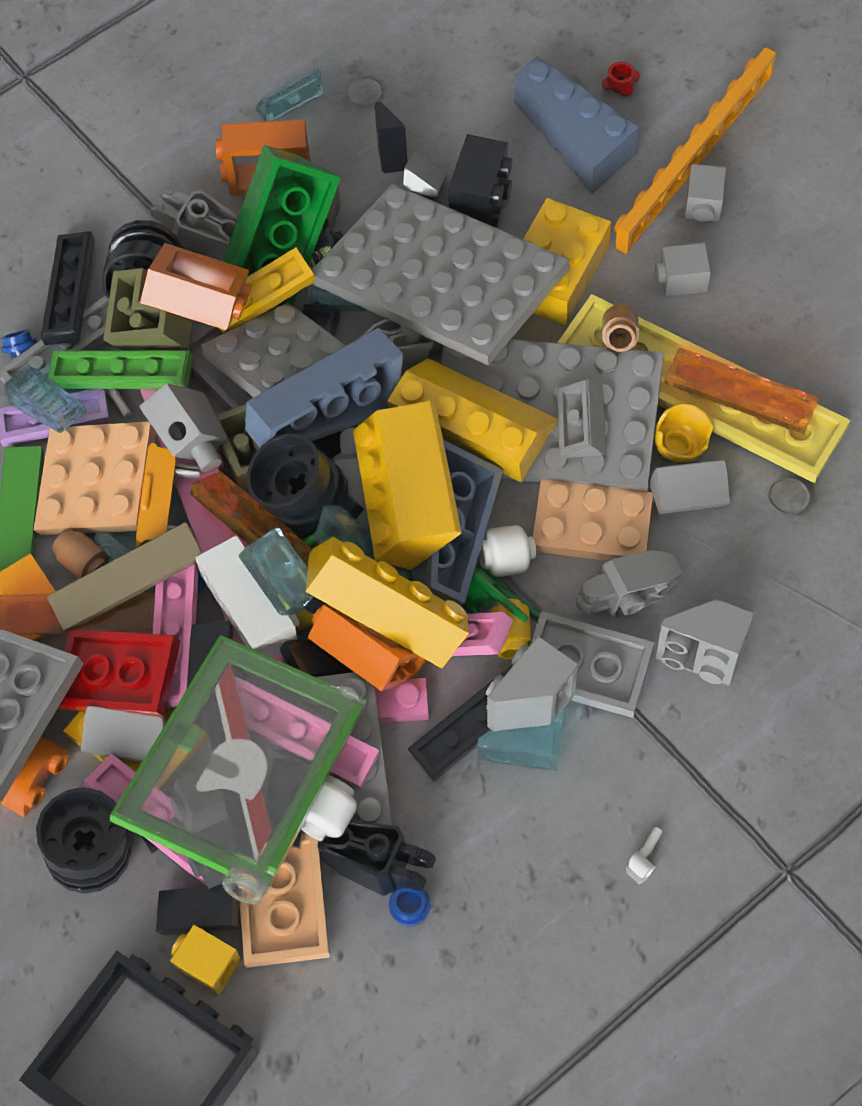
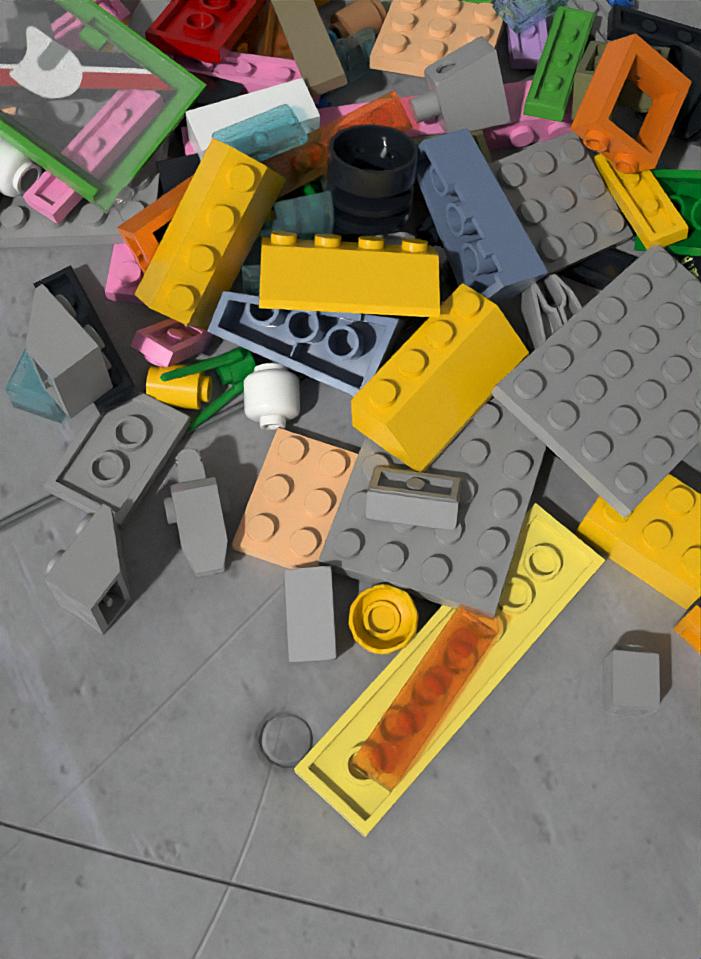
camera: 90 degrees right, 5 degrees up
(157, 492) = (383, 69): light orange piece -> none
(620, 328) = (533, 566): medium nougat brick -> none

